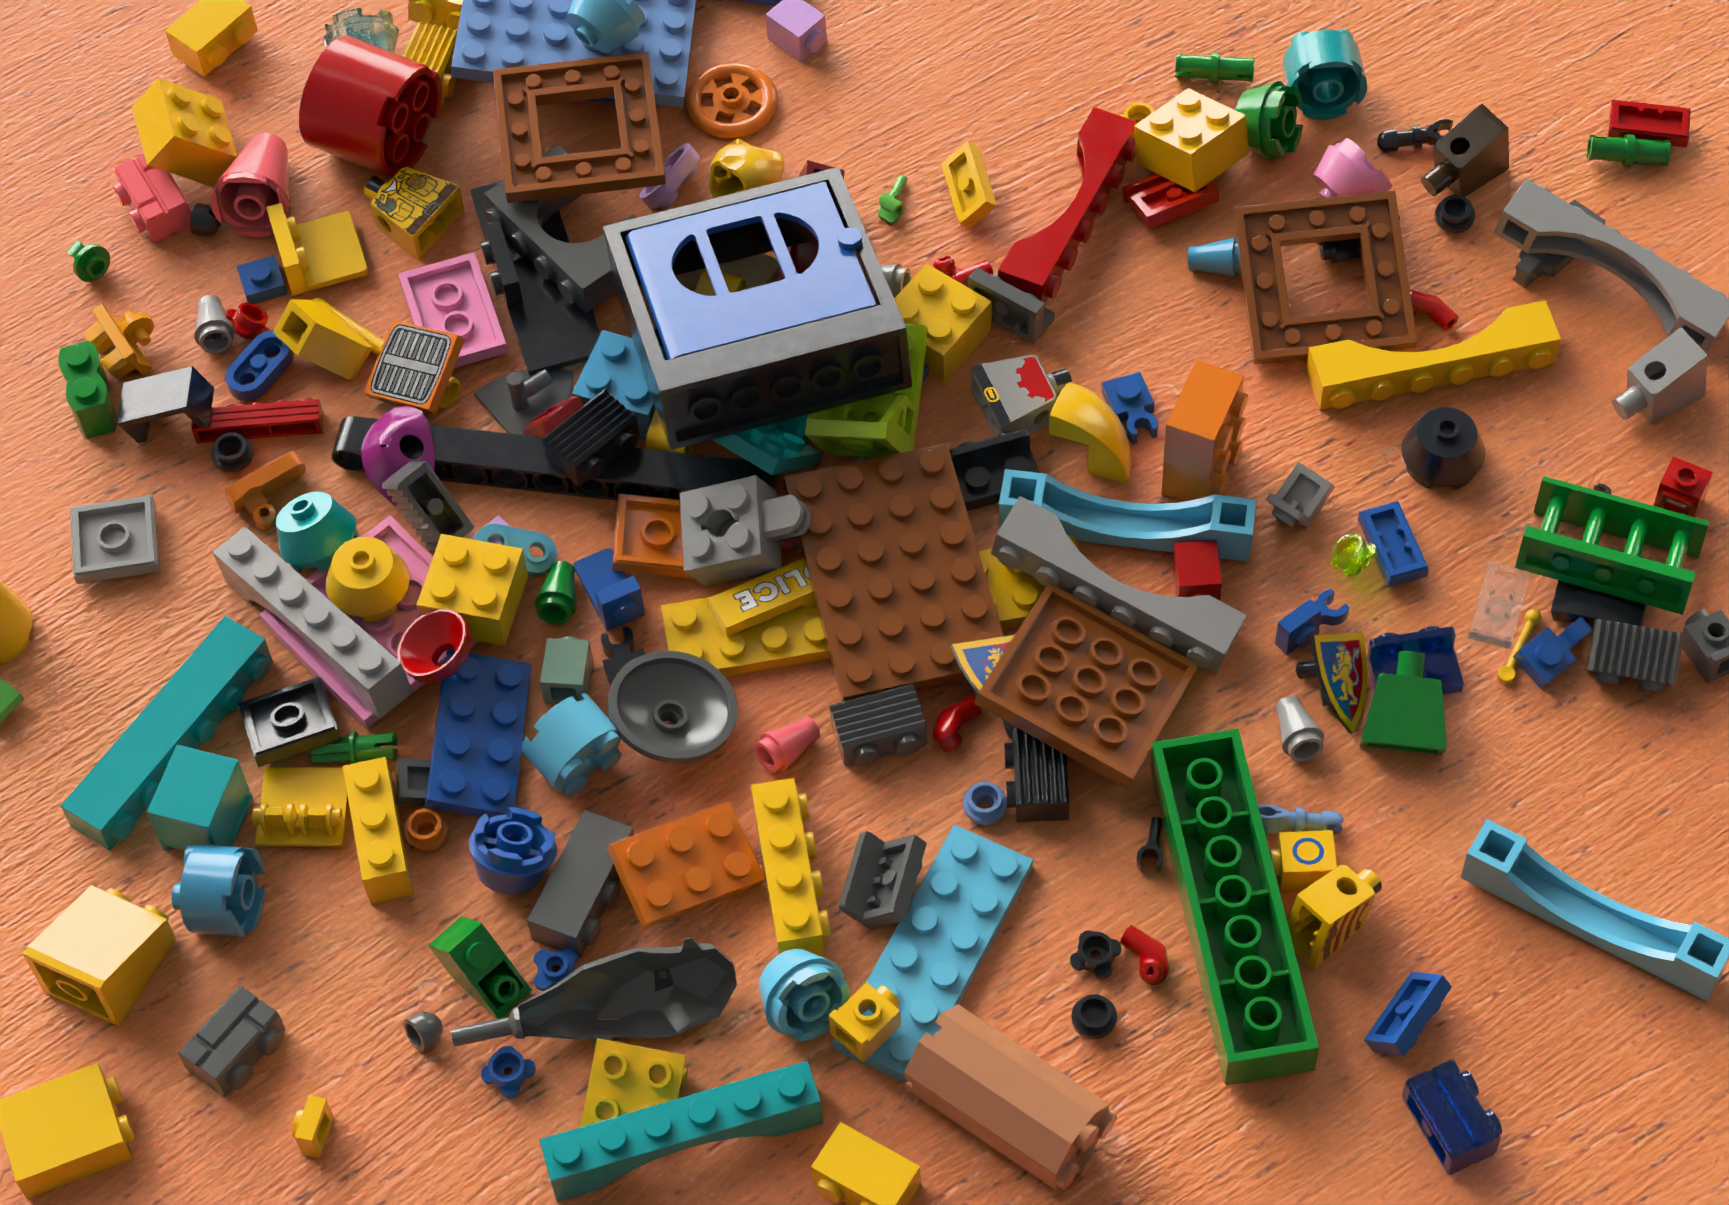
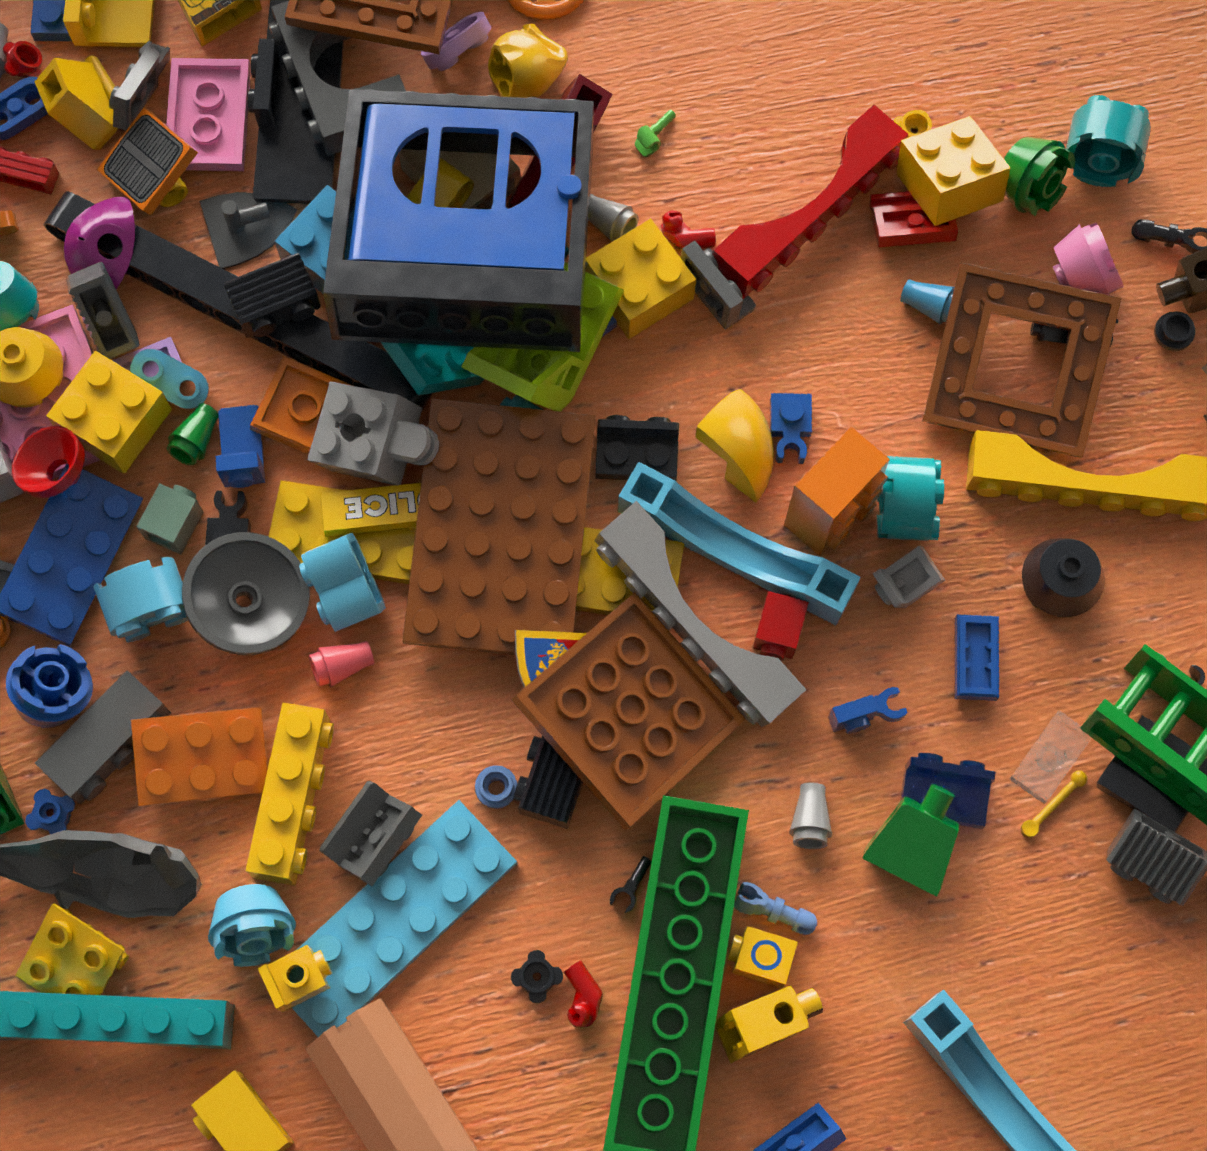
camera: 15 degrees right, 15 degrees up
(375, 305) = (138, 85): none -> dark grey hinge
(552, 417) = (250, 258): red plate -> none
(762, 669) = (342, 582): none -> medium azure brick
(878, 725) = (428, 675): dark grey brick -> none
(950, 721) = (494, 695): red arm -> none
(969, 184) = (728, 143): yellow plate -> none
(1016, 393) = (688, 380): light grey torso -> none
(1094, 1016) = (510, 1039): black plate -> none
(1215, 67) = (1008, 97): green pin -> none
(1275, 425) = (910, 499): none -> teal brick
(1341, 672) = (871, 779): shield -> none
(1352, 554) = (929, 648): clear neon green plate -> none
(1434, 308) = (1115, 423): red arm -> none
(1549, 654) = (1076, 824): blue plate -> none

